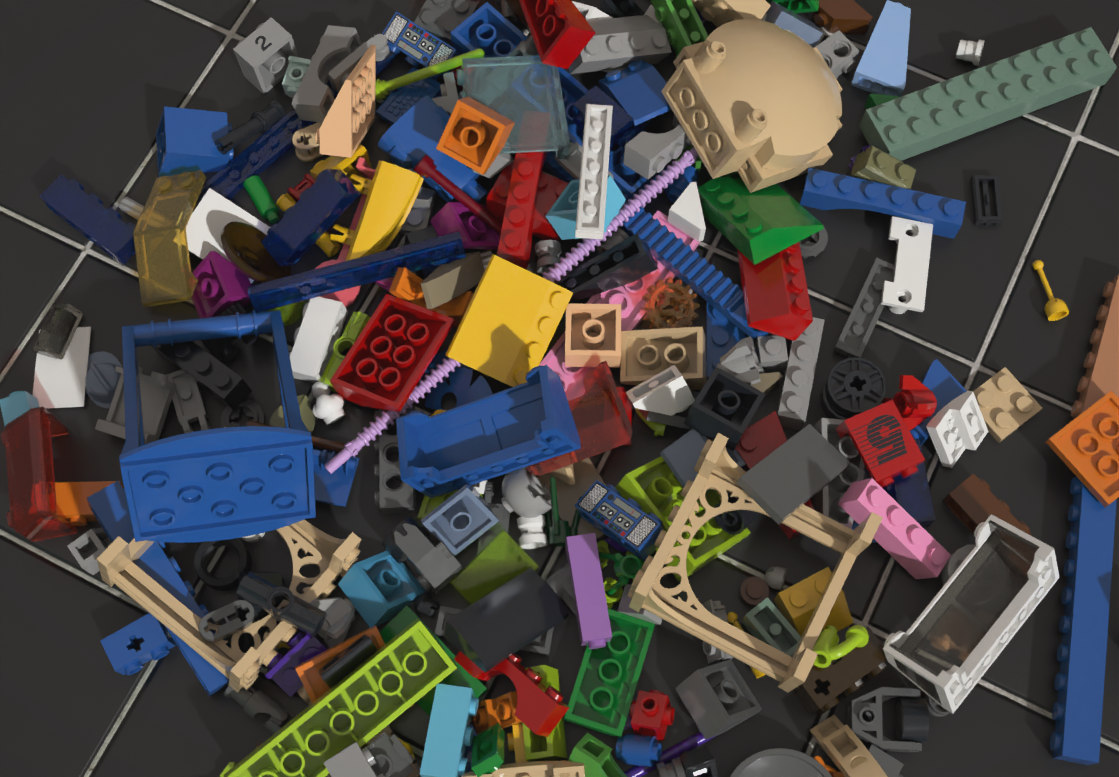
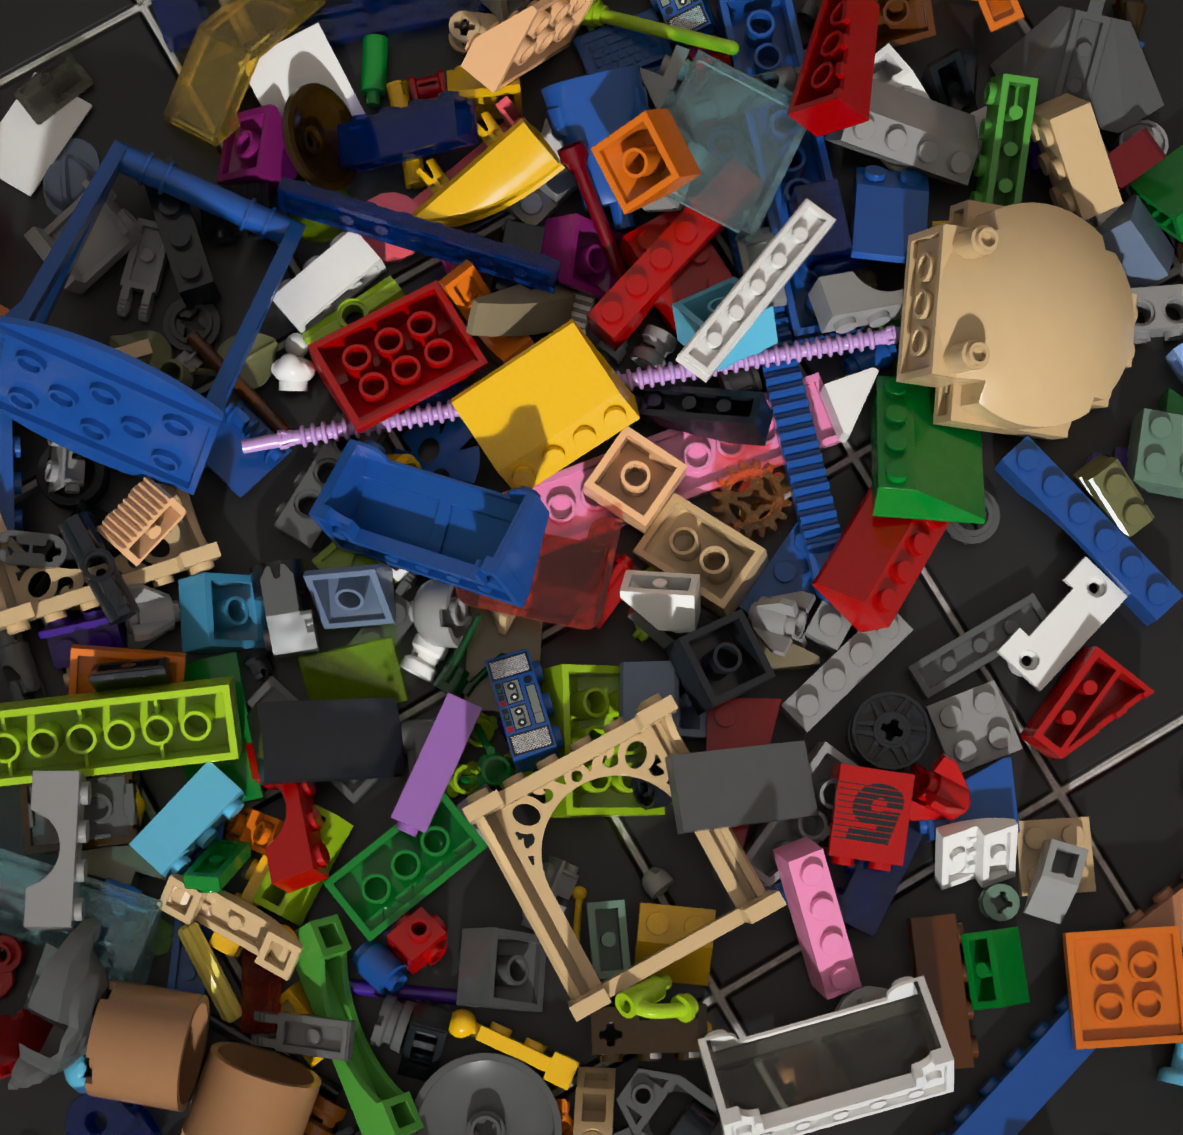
camera: 30 degrees right, 10 degrees up
(215, 559) = (64, 470): none -> light grey hinge
(290, 555) = (141, 520): none -> light nougat brick
(754, 590) = (623, 881): reddish brown plate -> none
(797, 738) = (558, 1068): none -> yellow plate
(899, 355) = (974, 726): none -> light grey plate
(953, 301) = (1083, 702): none -> red wedge
(986, 458) = (991, 902): none -> sand green wheel
(1018, 411) = (1055, 880): none -> light grey slope
(1020, 492) = (995, 968): none -> green brick

